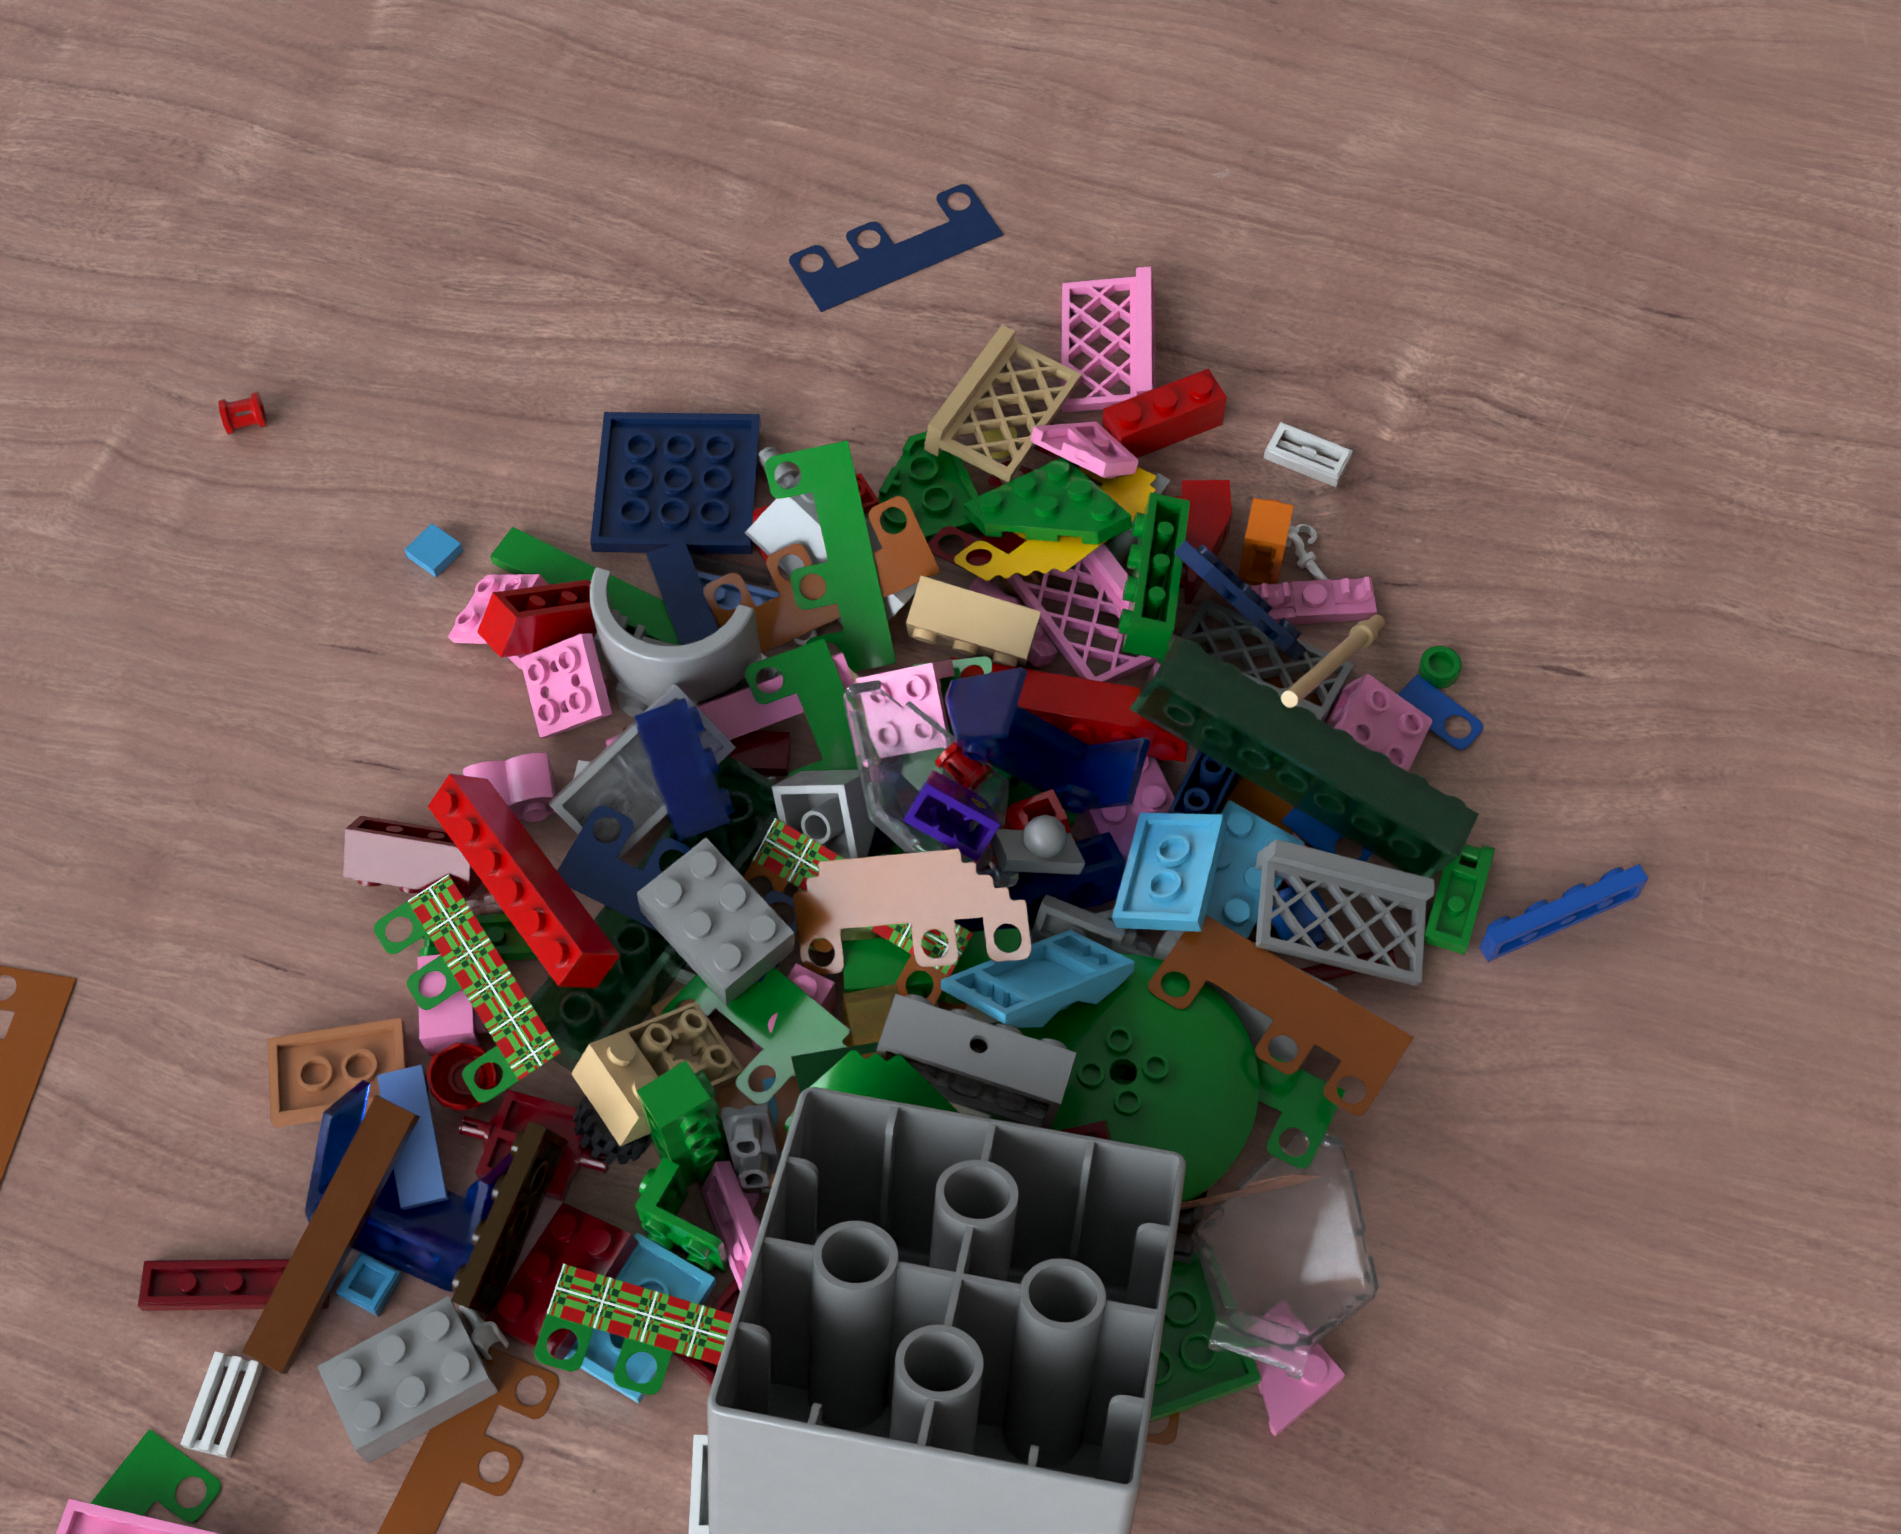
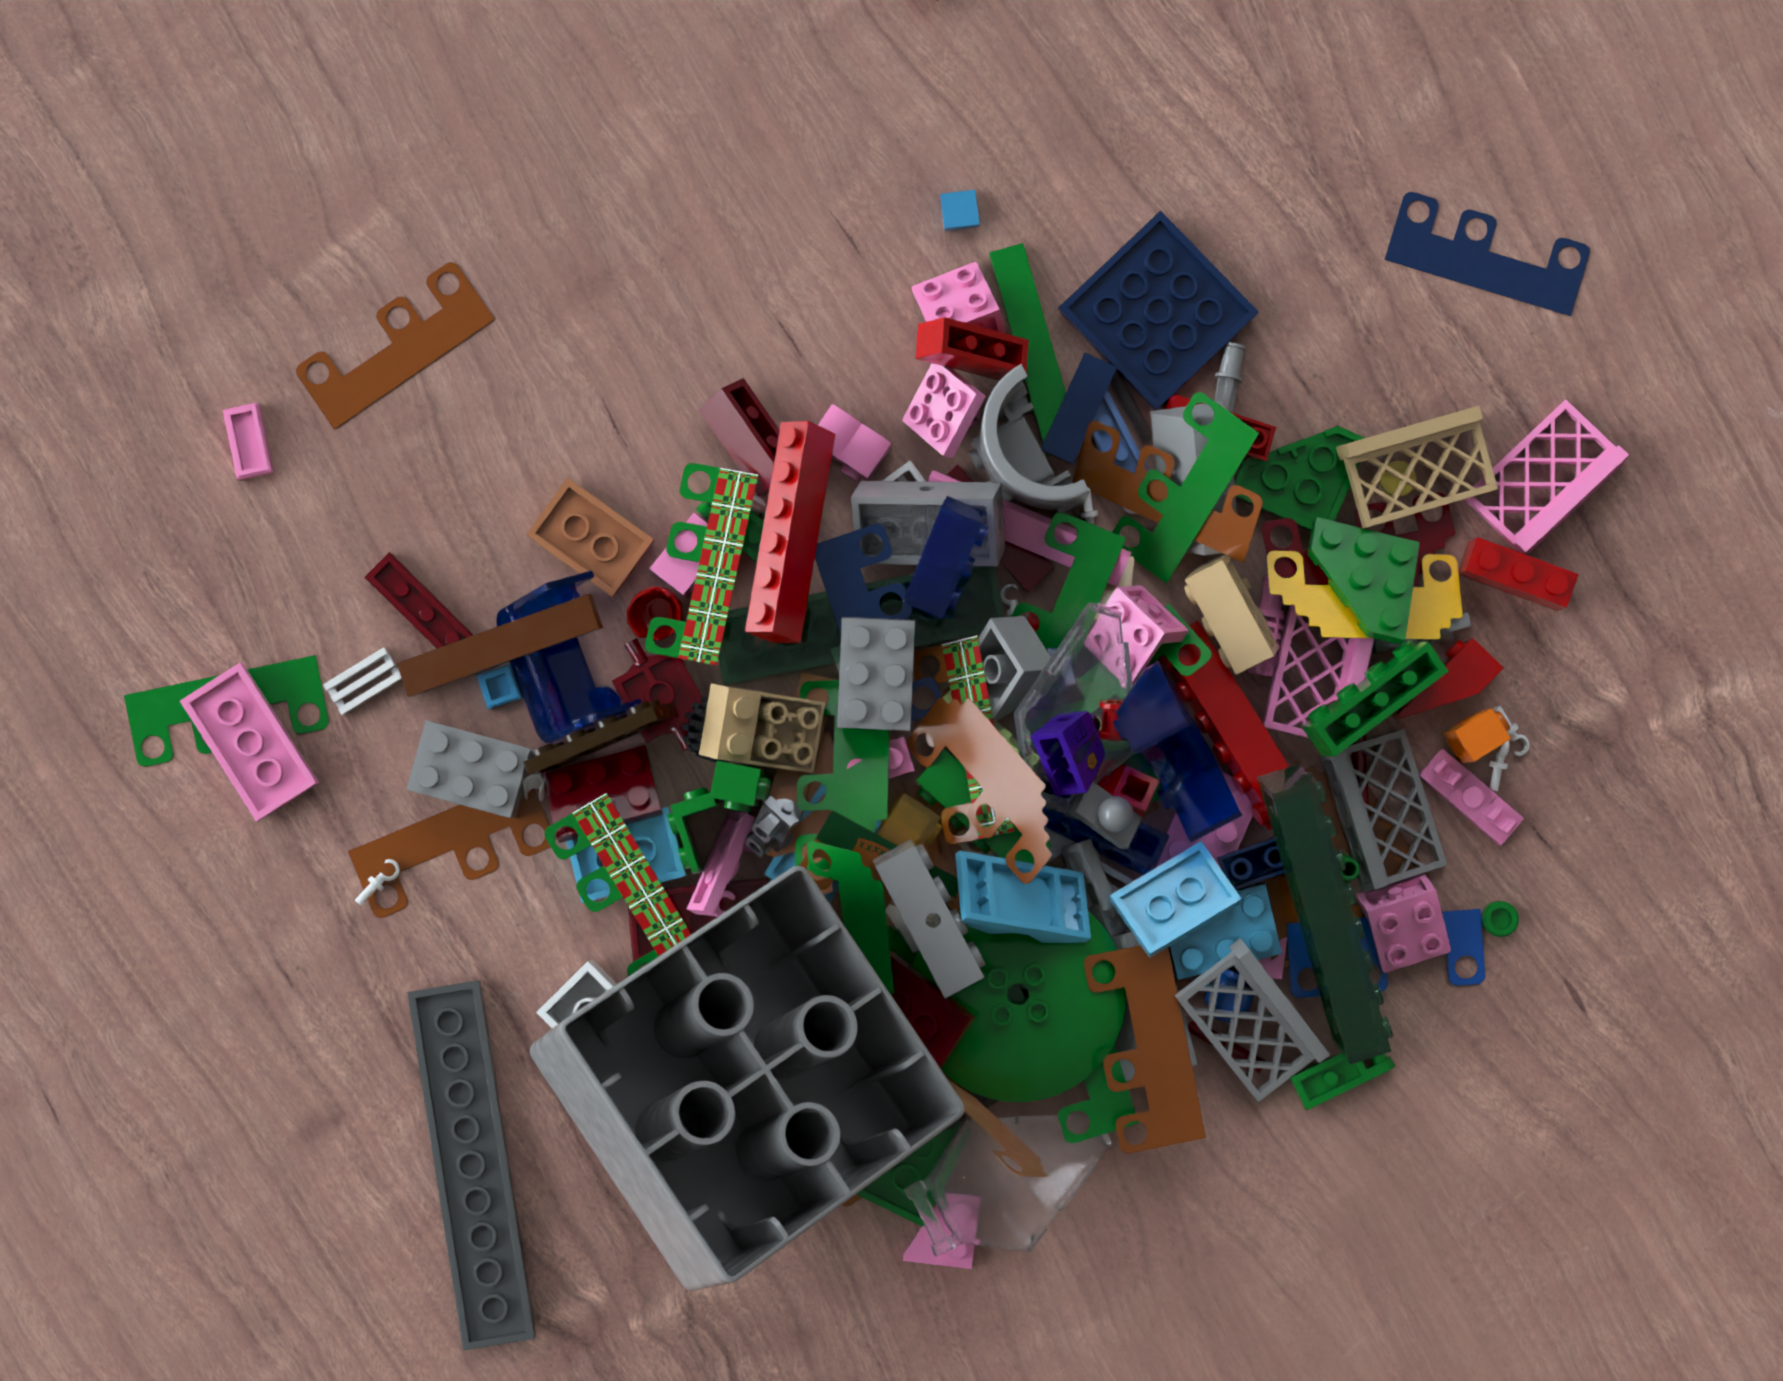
camera: 45 degrees right, 25 degrees up
(420, 1166) = (611, 599): medium blue tile -> none
(1088, 447) = (1438, 554): bright pink wing -> none
(1241, 597) = (1410, 746): dark blue plate -> none
(1305, 459) = (1572, 694): white tile -> none
(1360, 636) = (1466, 856): tan bar -> none
(1574, 907) = (1403, 1149): blue plate -> none

